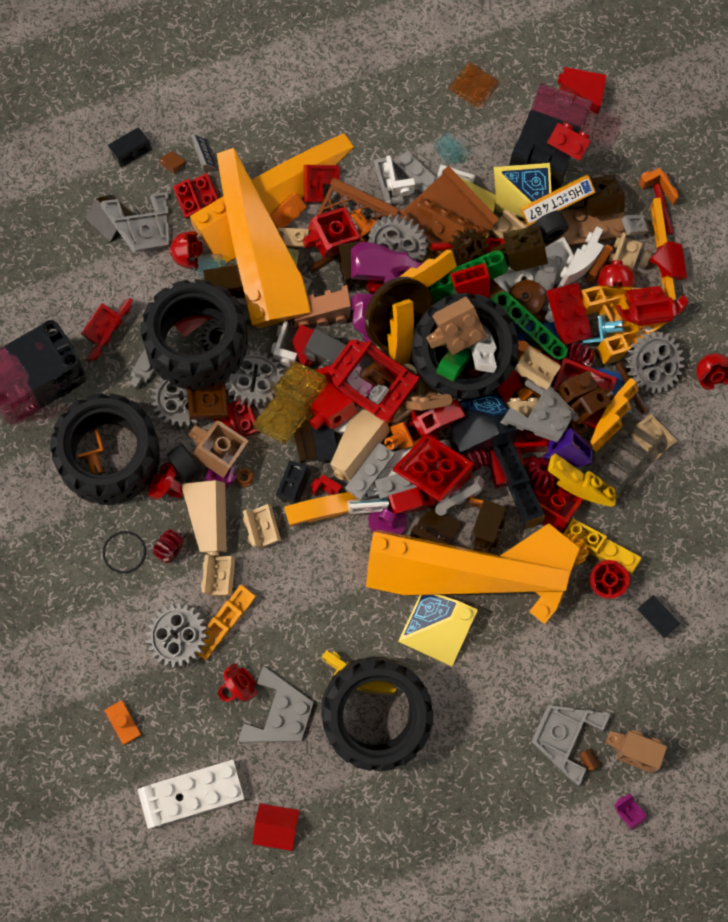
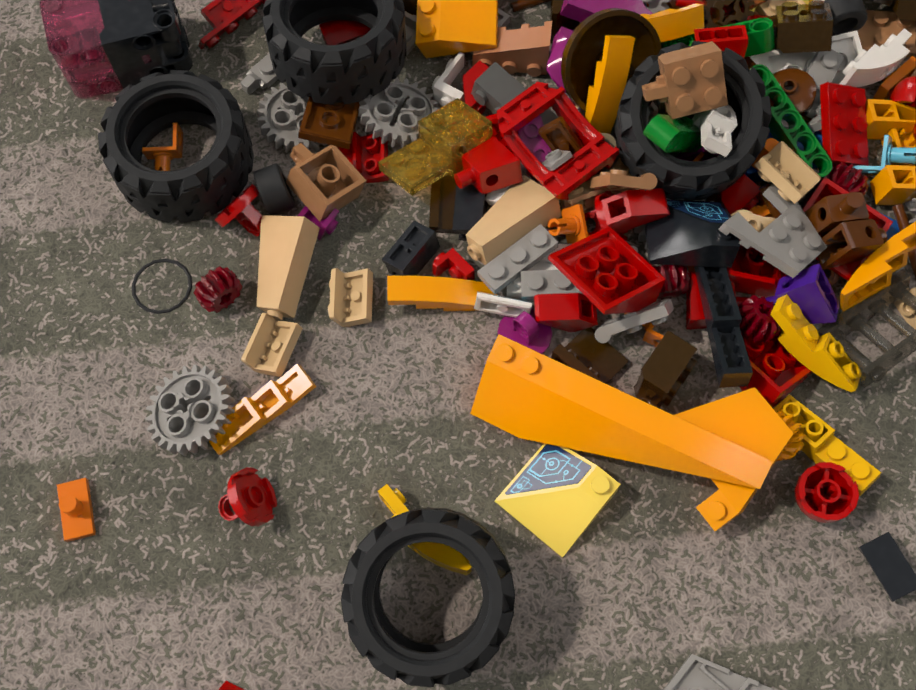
camera: 20 degrees right, 5 degrees down
(202, 792) = (146, 639): white hinge -> none
(244, 471) = (347, 223): dark orange plate -> none
(287, 714) = (305, 563): light grey wing -> none

